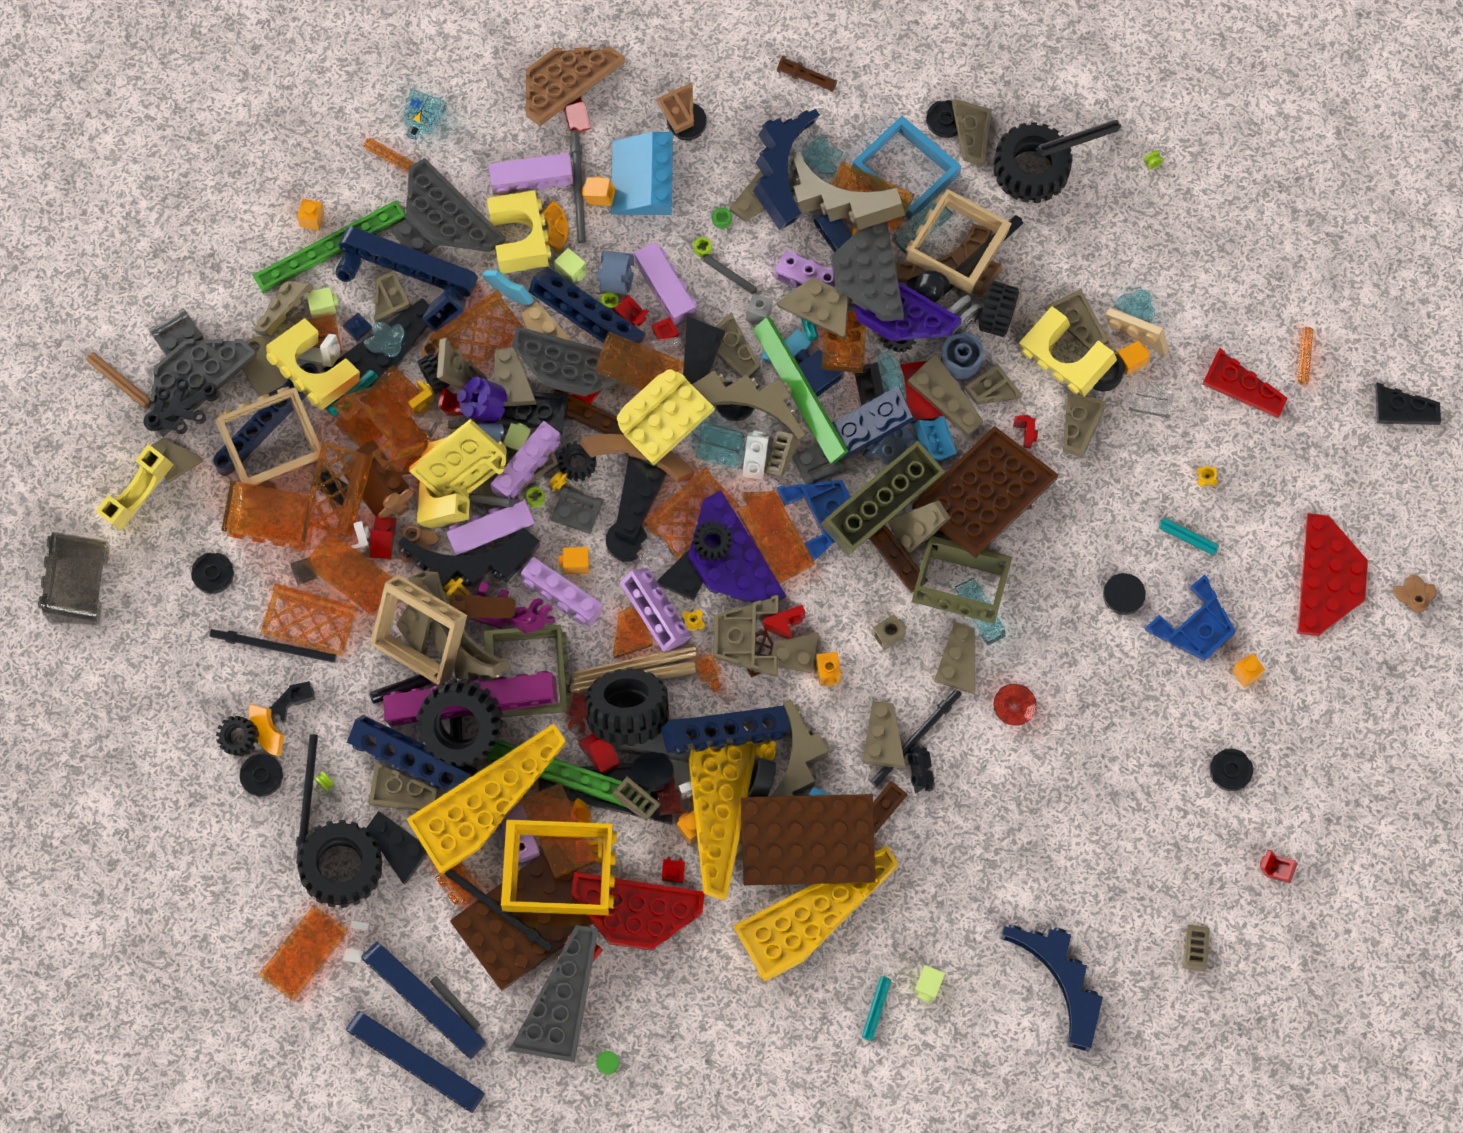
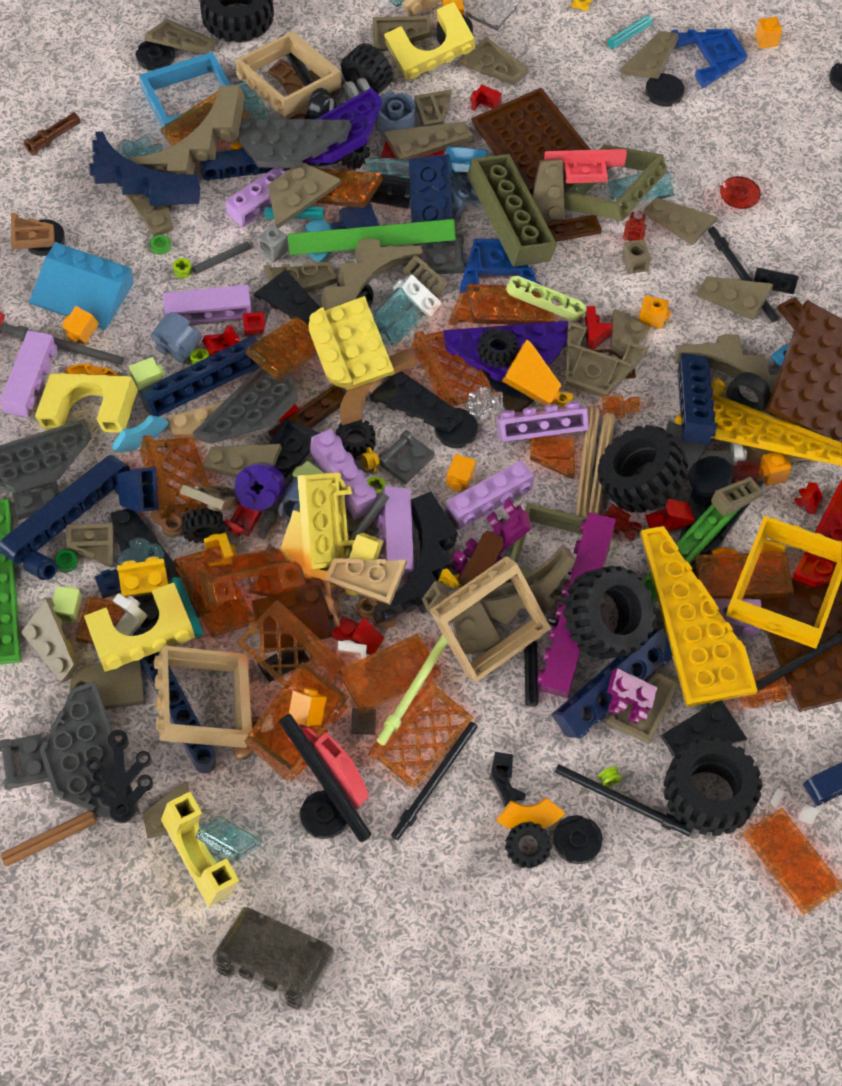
camera: 70 degrees left, 10 degrees down
(159, 507) = (228, 838): none -> clear light blue plate
(230, 556) = (325, 777): none -> black axle
(249, 558) = (339, 765): none -> coral slope
(283, 518) = (307, 706): none -> light orange brick
(300, 590) = (393, 721): none -> yellowish green bar
(362, 349) = (142, 577): none -> yellow bracket
(365, 284) = (66, 560): none -> green tile
(403, 769) = (630, 689): none -> plate
(424, 519) = (370, 578): none -> tan wing
(695, 582) = (532, 376): none -> light orange slope
(793, 566) = (546, 296): none -> yellowish green beam
(918, 620) = (635, 228): none -> clear red plate
(955, 545) = (588, 165): none -> coral bracket
(1159, 567) = (652, 57): none -> dark tan wing

